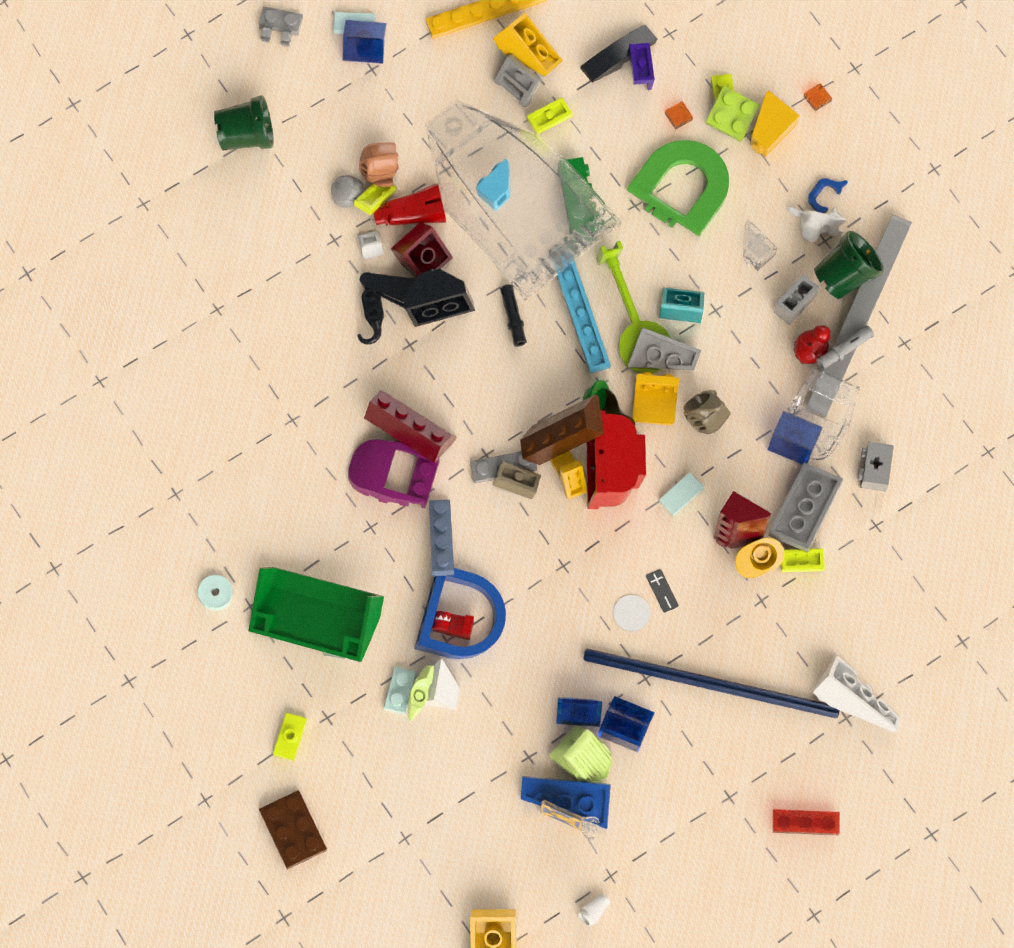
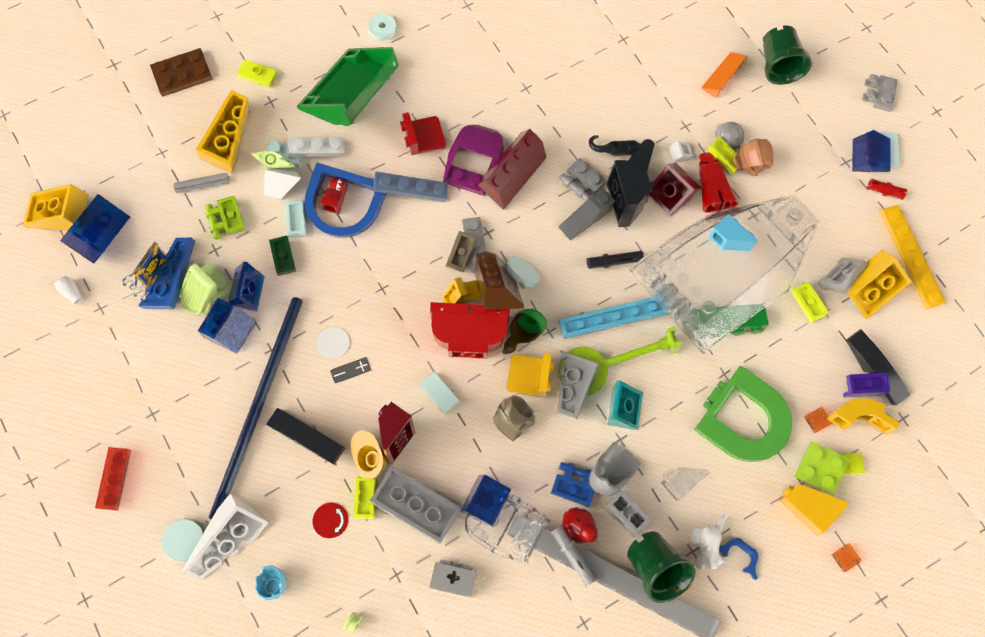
camera: 90 degrees right, 0 degrees up
(263, 194) = (724, 73): none -> orange slope
(367, 531) = (422, 134): none -> red bracket
(382, 757) = (225, 133): none -> yellow wedge
(392, 652) = (315, 146): none -> white plate
(406, 28) = (887, 189): none -> red pin
(409, 347) = (586, 176): none -> light grey plate
(446, 781) = (202, 182): none -> light grey axle
(460, 344) = (587, 214): none -> dark grey slope
(484, 668) = (296, 218): none -> light aqua tile
(487, 741) = (230, 214): none -> lime plate
(520, 887) = (95, 228): none -> clear blue slope
(534, 676) = (282, 255): none -> dark green plate
(538, 410) = (522, 271): none -> light aqua tile
(670, 82) = (865, 410): none -> yellow arch
(742, 626) = (305, 436): none -> black slope
(753, 312) = (613, 470): none -> light grey hair
(775, 353) = (571, 489): none -> blue plate
(827, 596) = (330, 520): none -> red sticker
(862, 741) = (181, 539): none -> light aqua tile
(898, 643) = (270, 583): none -> medium azure hair
(928, 560) = (352, 622): none -> yellowish green bush

